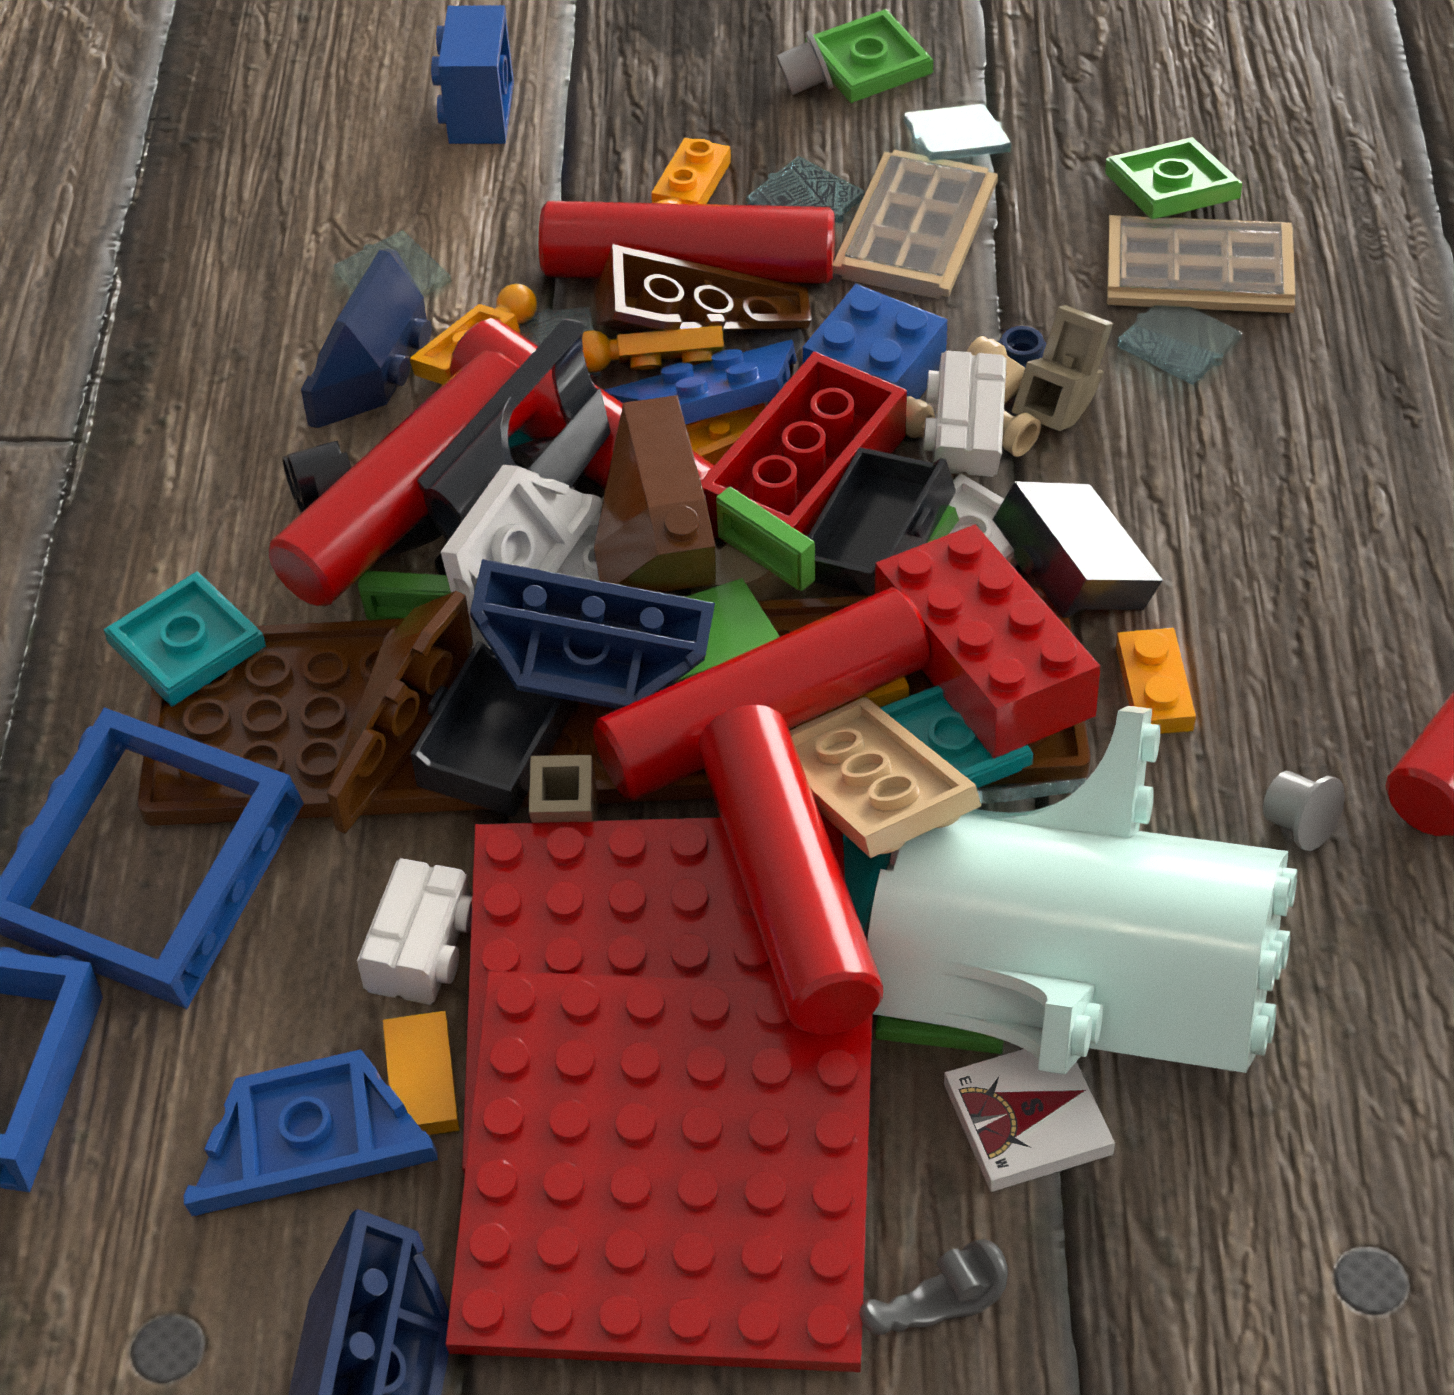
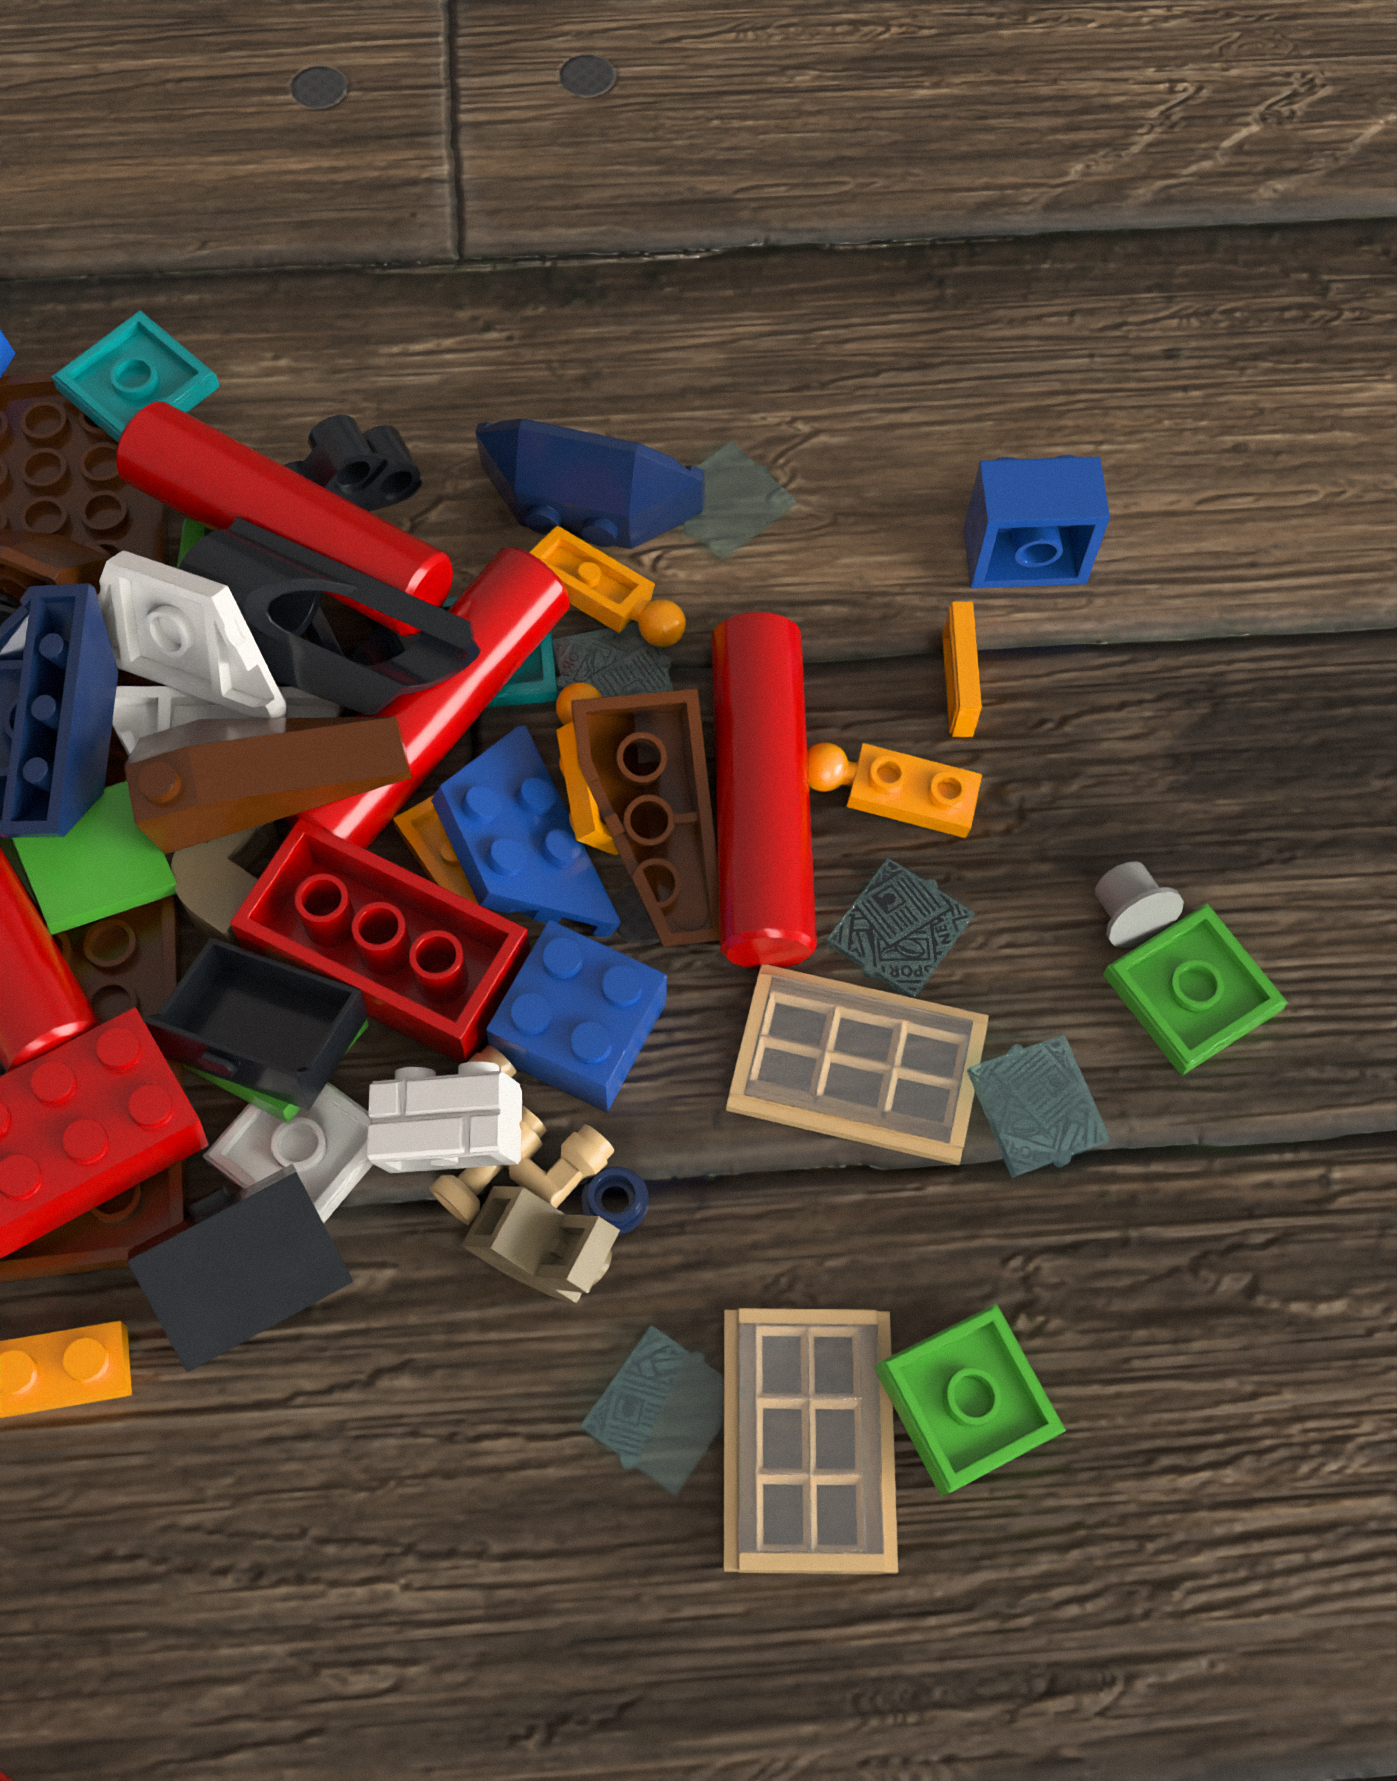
camera: 80 degrees right, 15 degrees up
(592, 137) = (961, 669): none -> light orange tile
(765, 539) = (204, 892): bright green tile -> none

